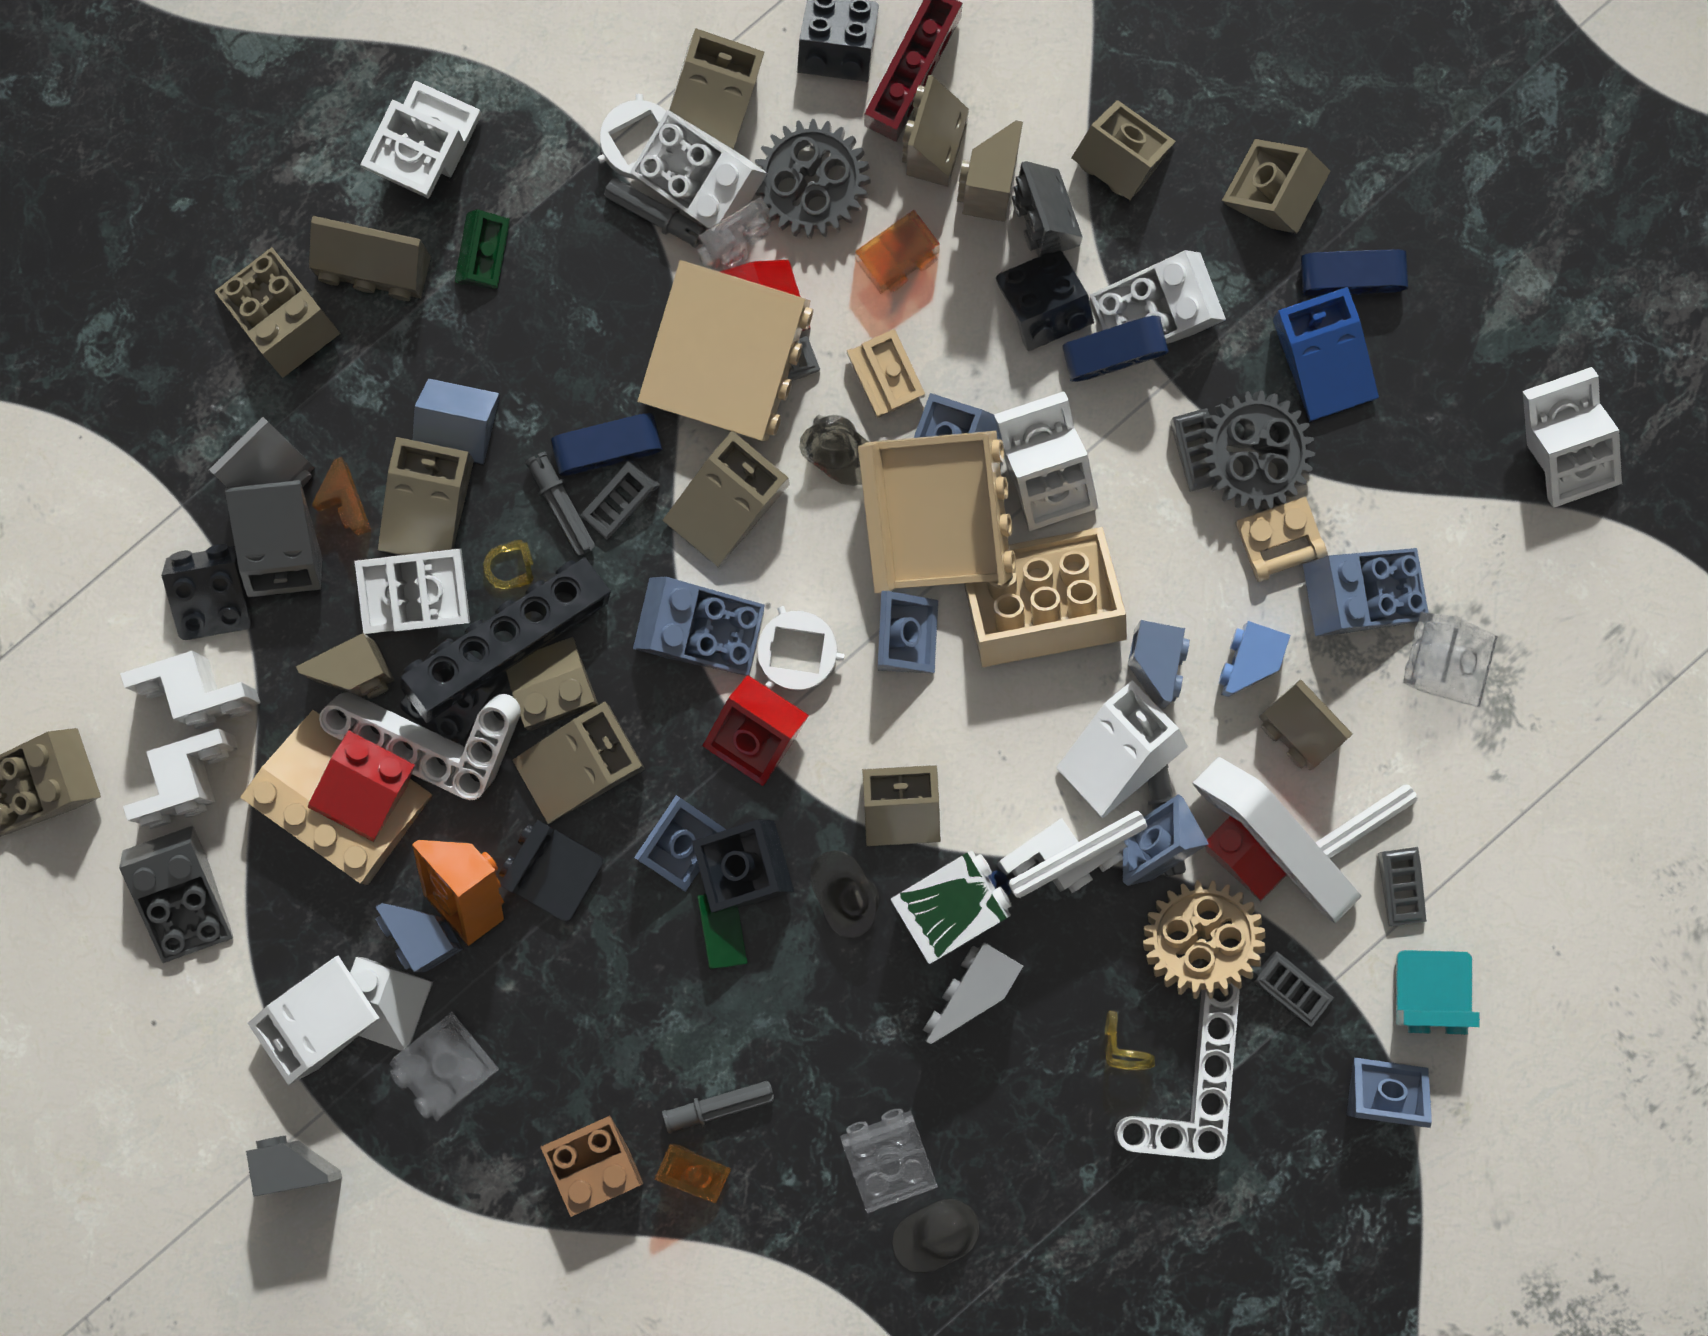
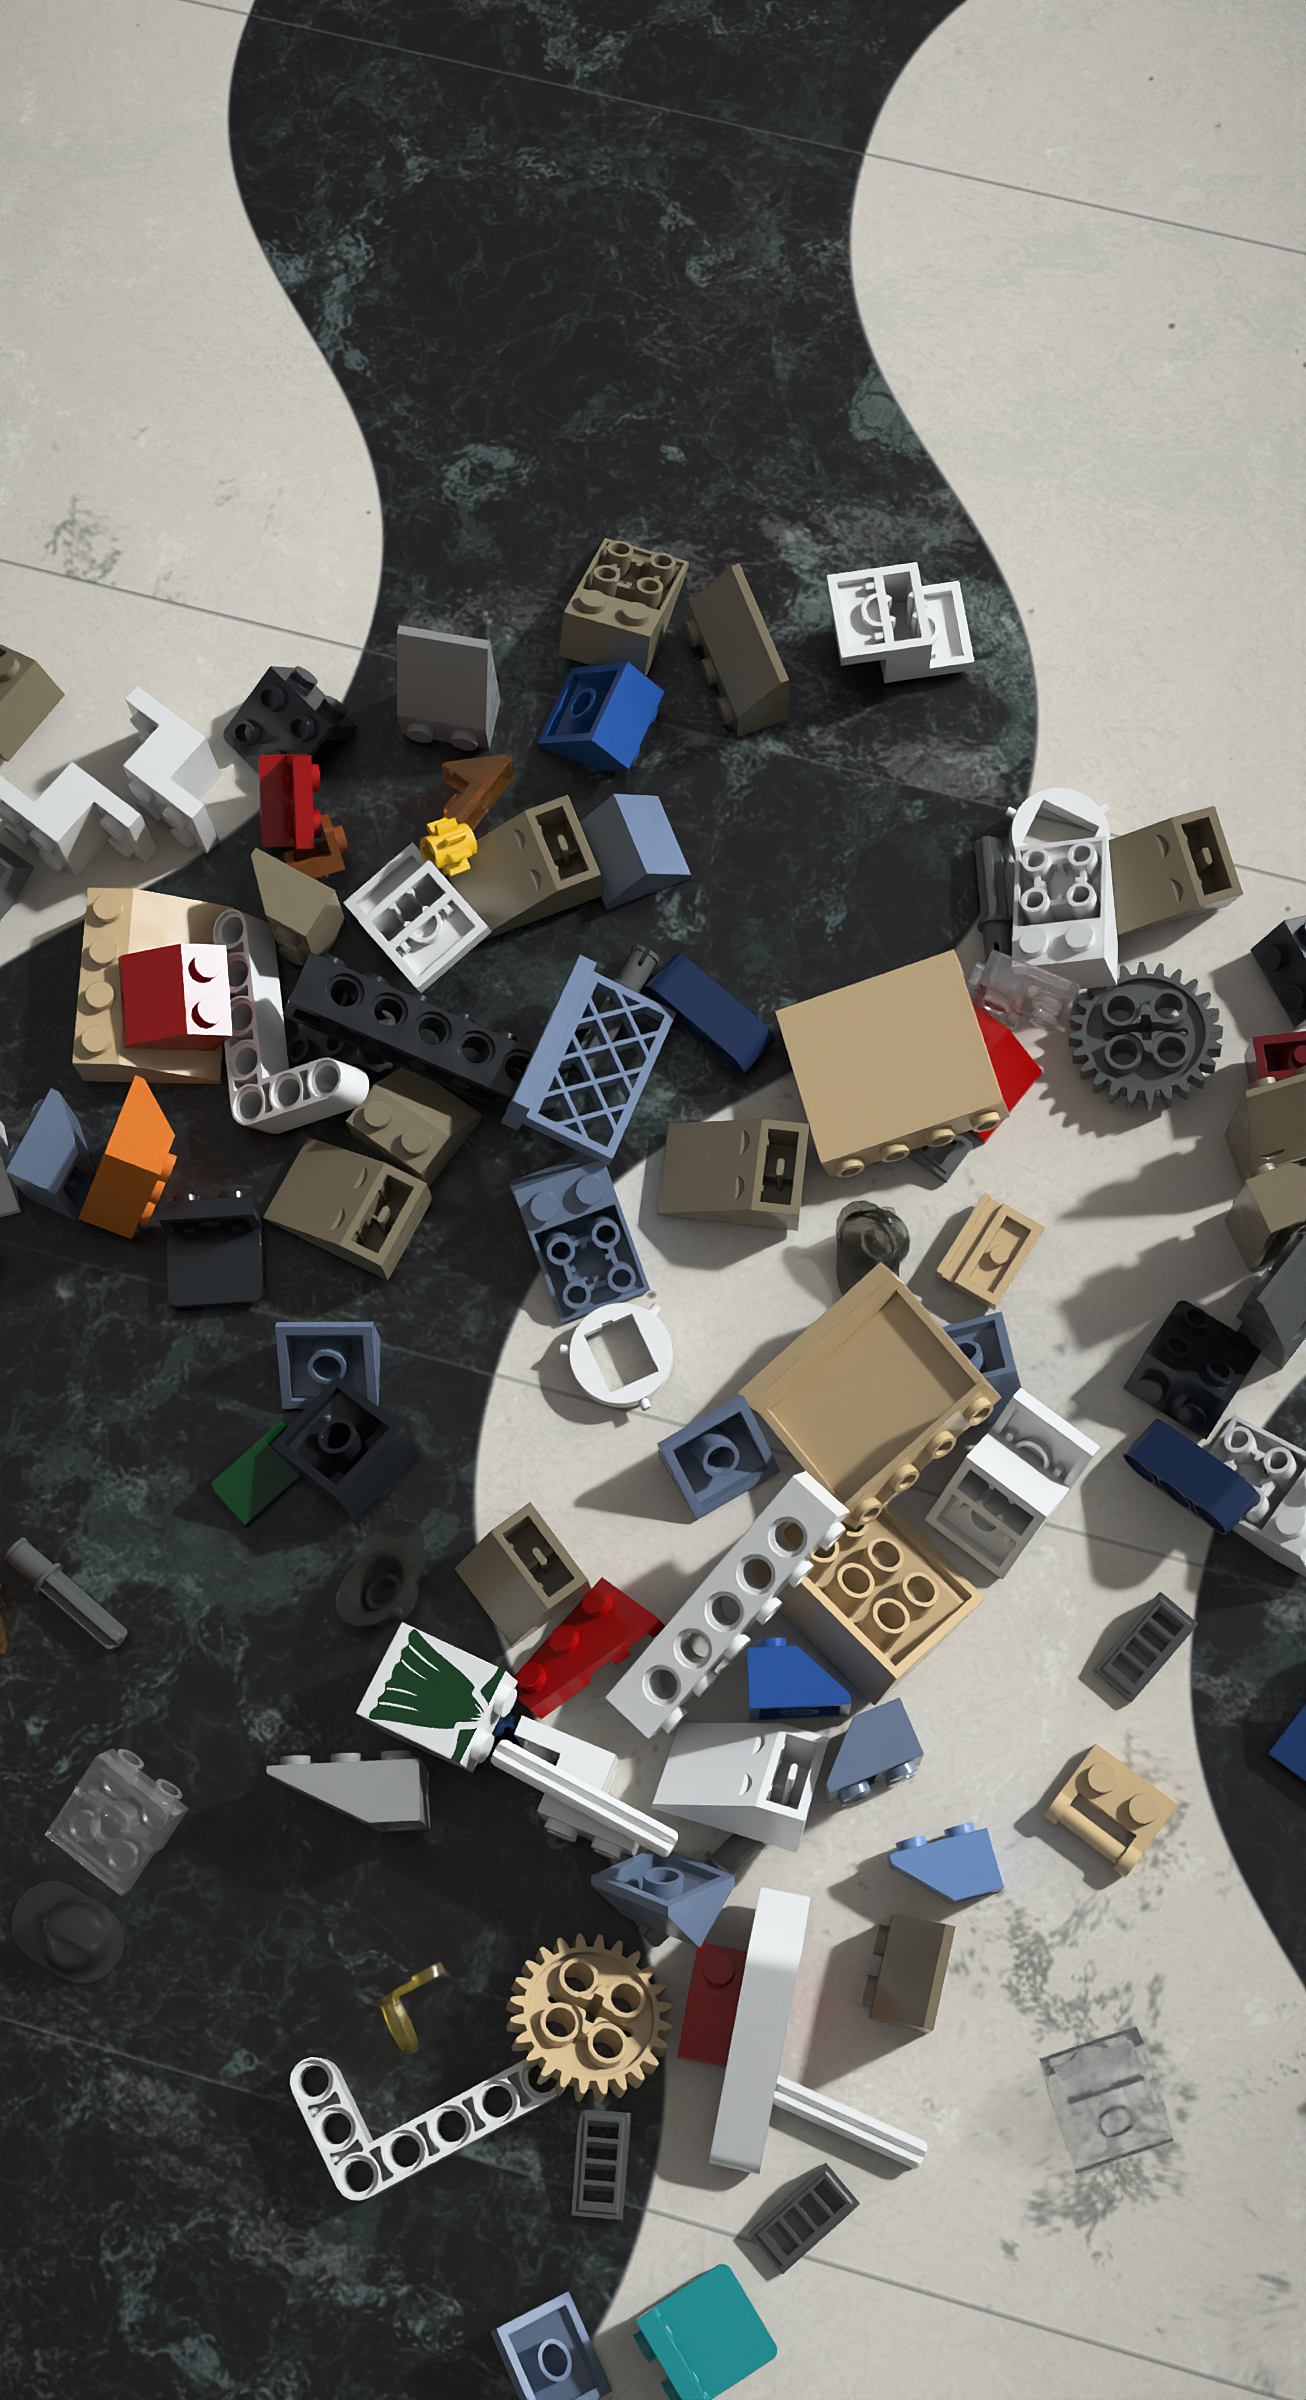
camera: 60 degrees right, 10 degrees down
(267, 624) = (287, 801): none -> red bracket
(274, 538) = (380, 747): dark grey slope -> none
(319, 630) = (325, 857): none -> dark orange bracket
(346, 378) = (601, 716): none -> blue slope
(376, 538) = (448, 846): none -> yellow gear
(482, 249) = (831, 762): dark green slope -> none
(519, 581) = (529, 1009): clear yellow piece -> none
(564, 553) = (550, 1055): none -> sand blue fence
(645, 479) = (701, 1070): dark grey slope -> none
(755, 730) = (504, 1365): red slope -> none
(898, 253) = (1130, 1177): clear orange brick -> none
(969, 792) = (586, 1640): none -> red wing
(1024, 779) = (640, 1692): none -> white brick
(1081, 683) = (791, 1684): none -> blue slope
(1255, 483) = (1226, 1688): dark grey gear -> none
(1365, 591) = (1117, 1946): sand blue slope -> none

